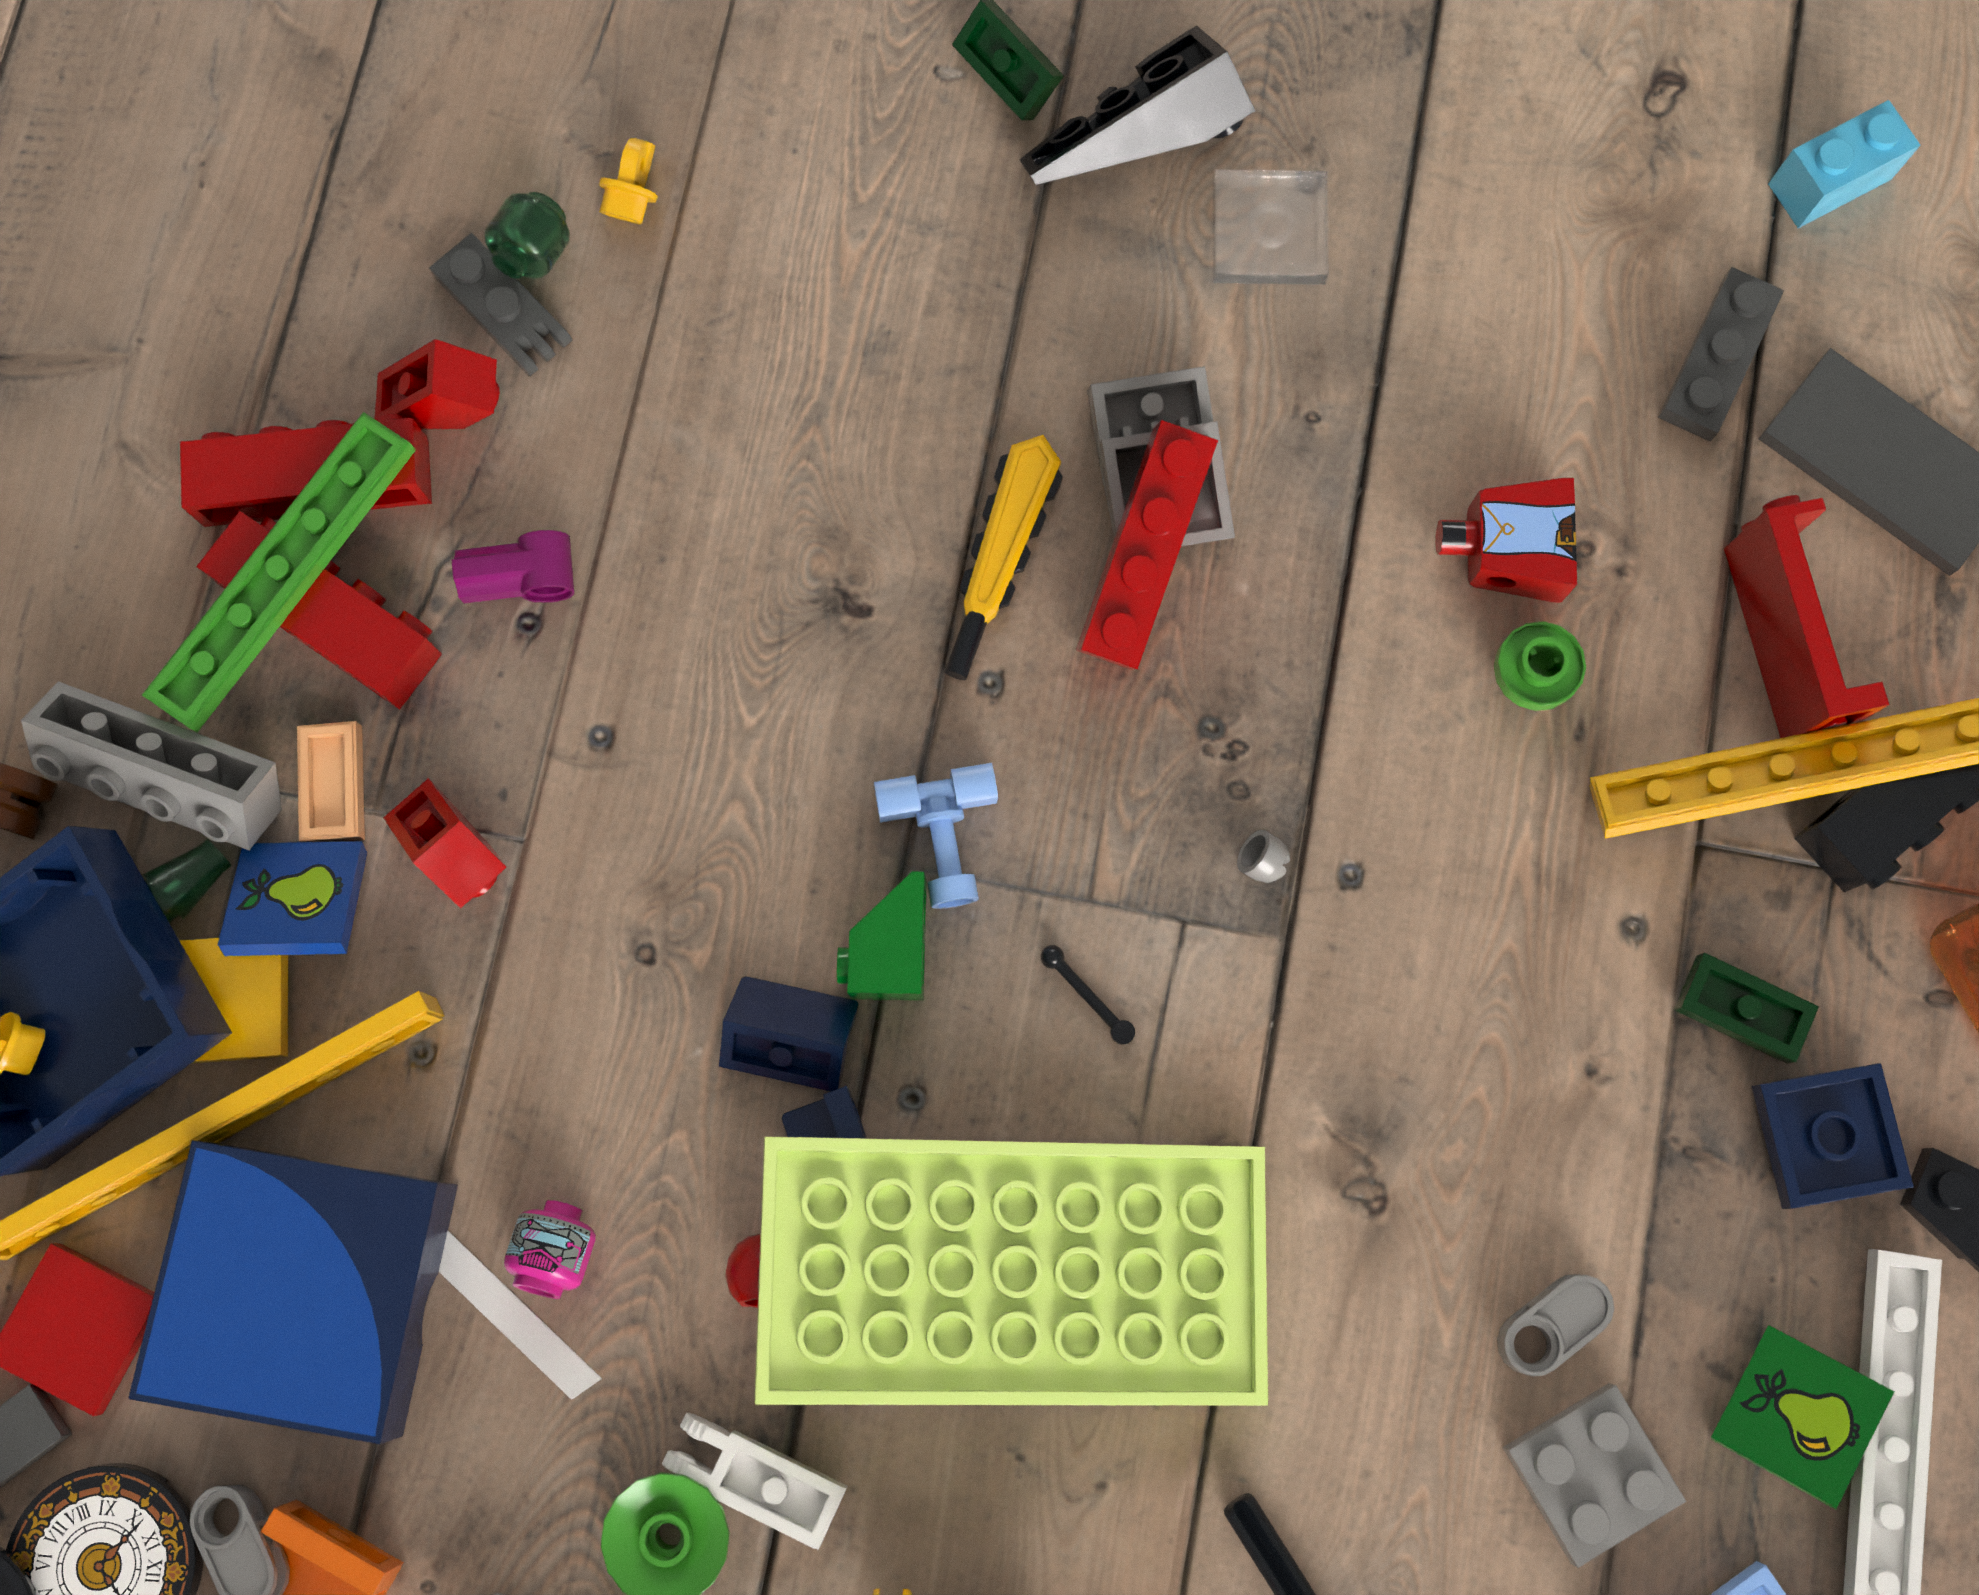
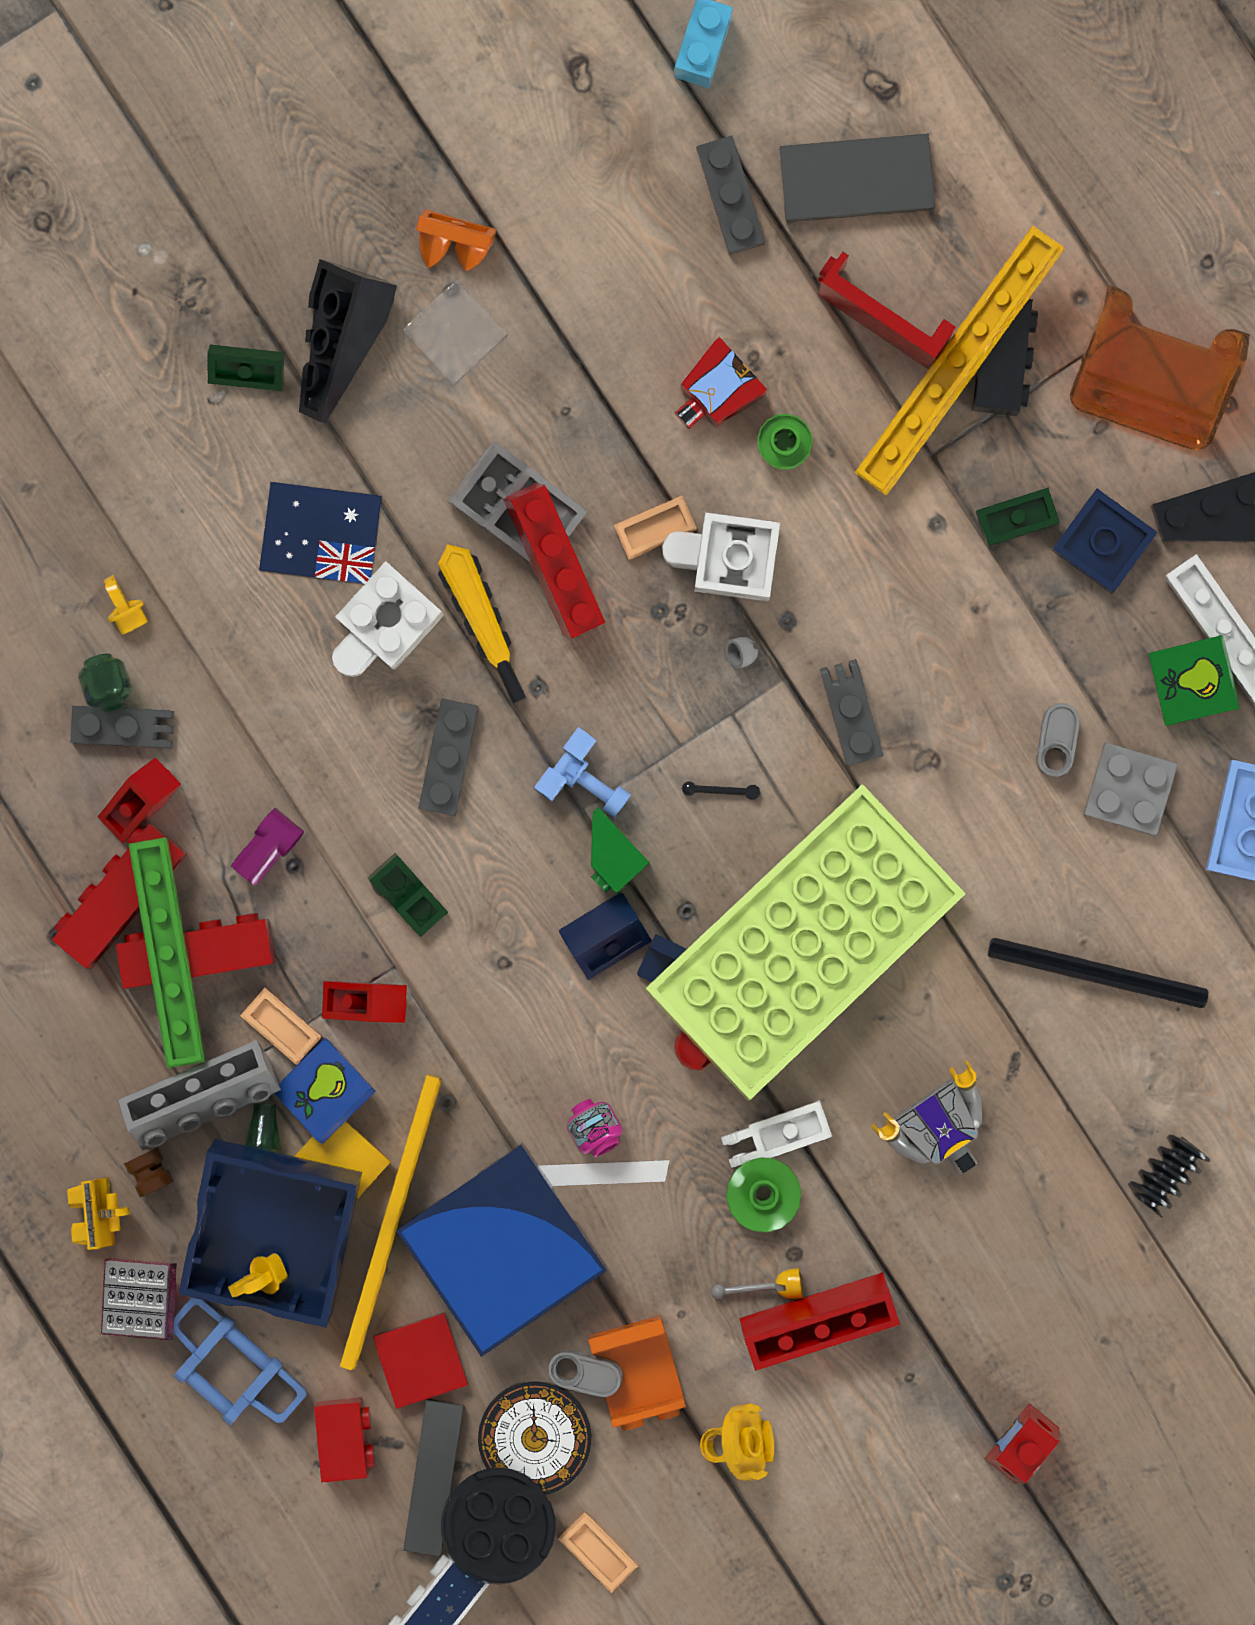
camera: 40 degrees left, 10 degrees up
(616, 771) = (407, 894): none -> dark green slope
(814, 663) = (448, 757): none -> dark grey plate
(880, 469) = (384, 622): none -> white brick
(917, 303) = (320, 533): none -> dark blue sticker
(1295, 629) = (649, 529): none -> light nougat tile
(1327, 1054) = (852, 714): none -> dark grey hinge
(1349, 109) = (440, 230): none -> orange tile
(1353, 732) = (730, 555): none -> white brick

